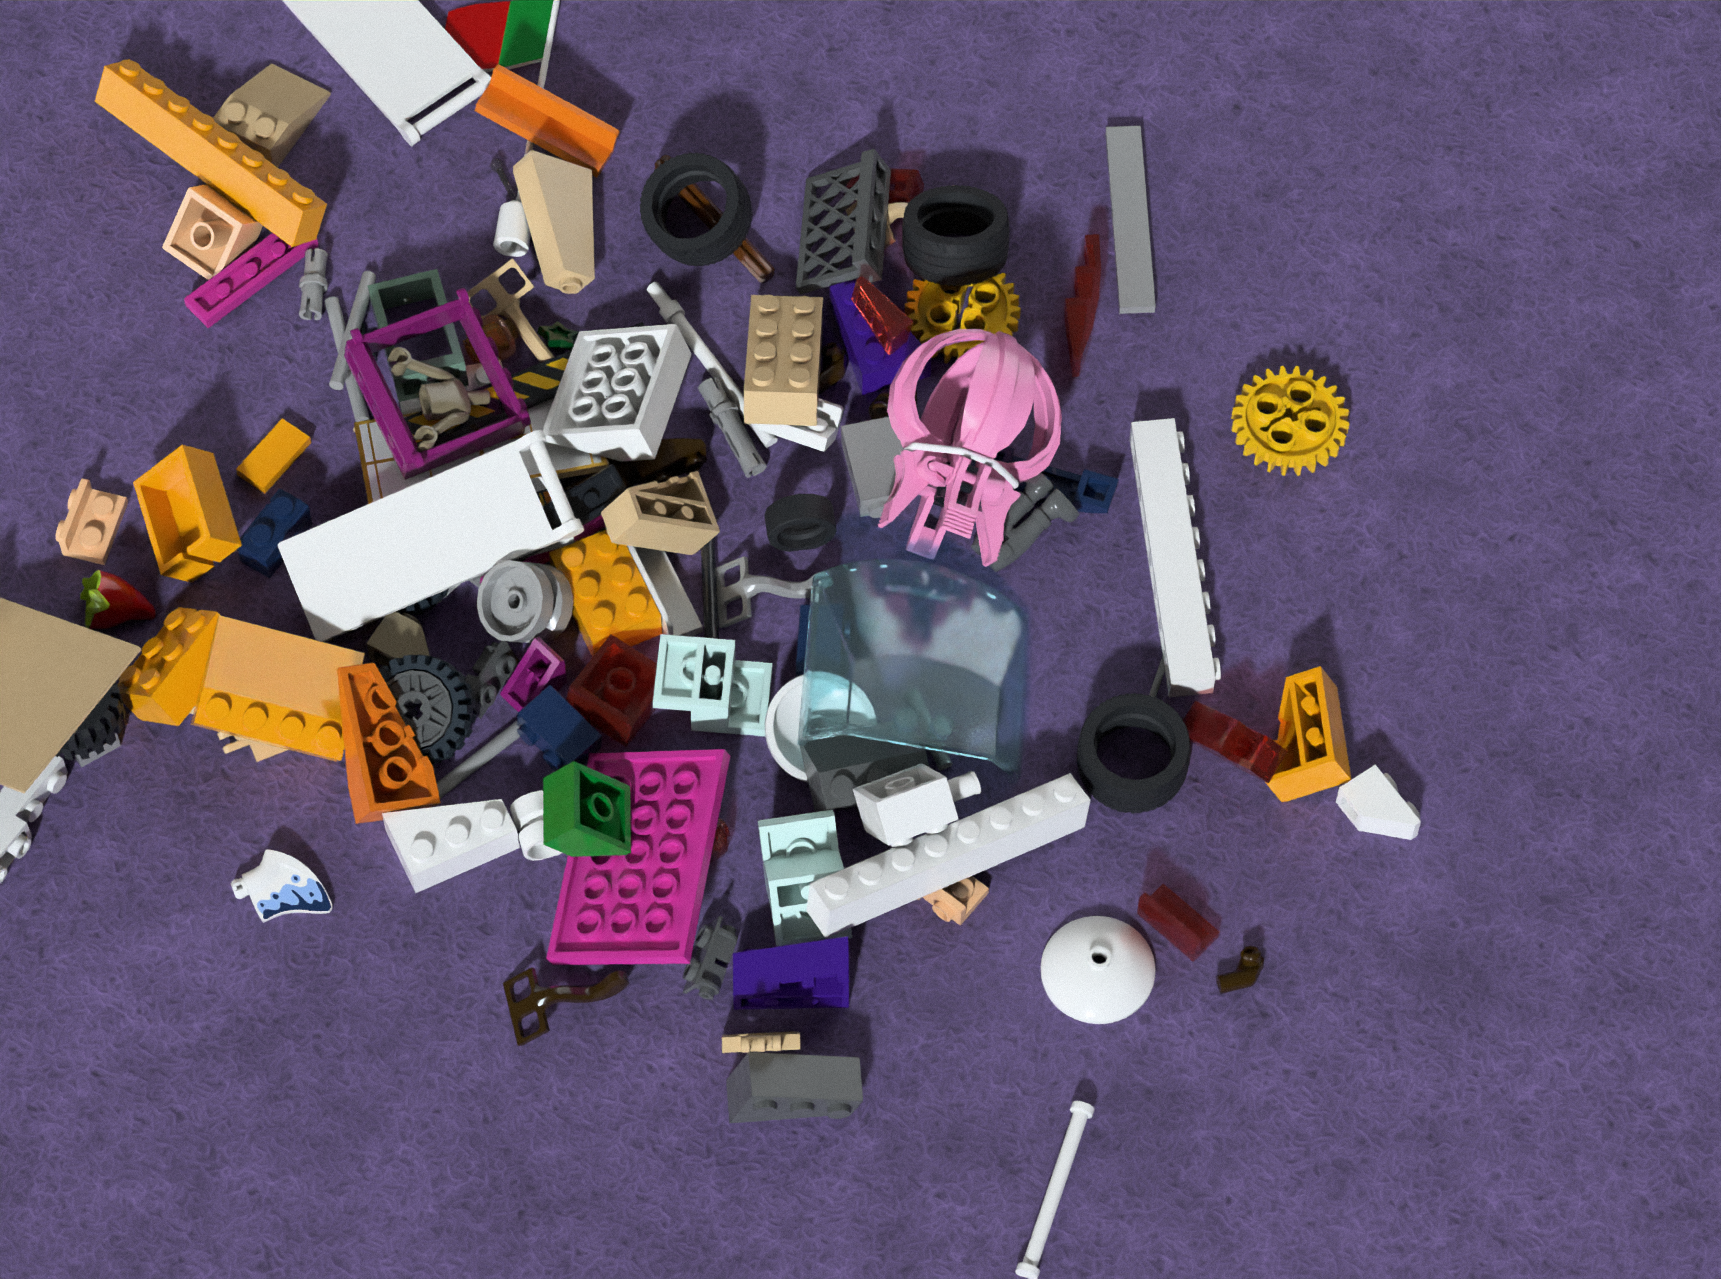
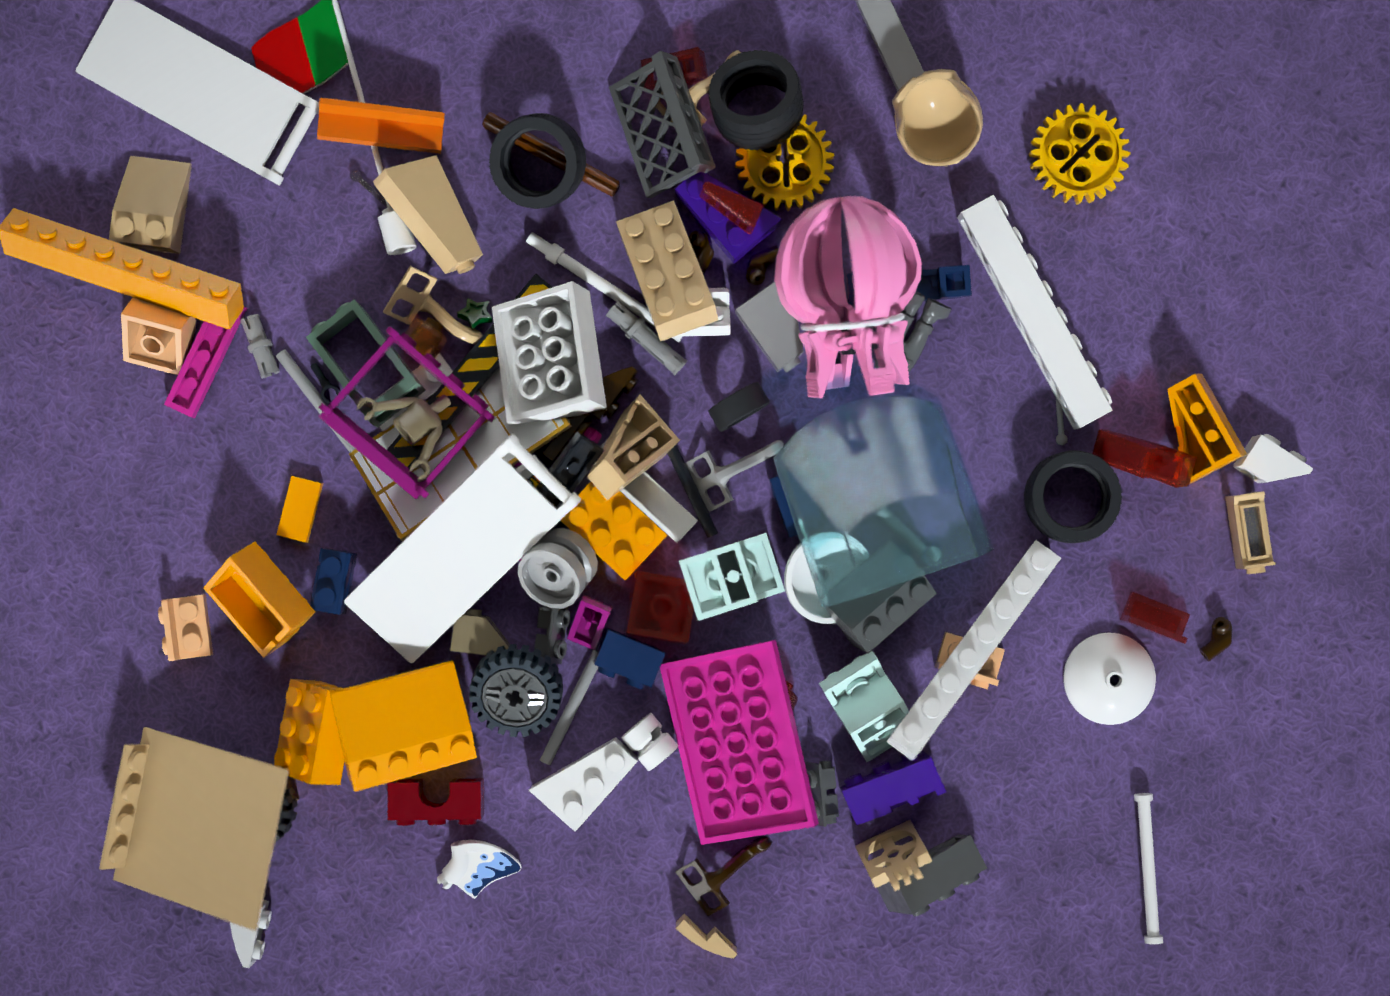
camera: 25 degrees left, 25 degrees up
(113, 601) = (236, 691): red hat -> none
(299, 811) = (409, 803): none -> dark red arch
(355, 321) = (310, 375): light grey bar -> none
(380, 753) = (507, 743): orange wedge -> none
(509, 1063) = (713, 942): none -> tan slope
(586, 812) = (686, 732): green slope -> none
(912, 803) = (933, 629): white brick -> none
(1082, 311) = (880, 125): clear red slope -> none
(1142, 321) = (937, 118): none -> tan piece
(1324, 868) = (1249, 532): none -> tan window

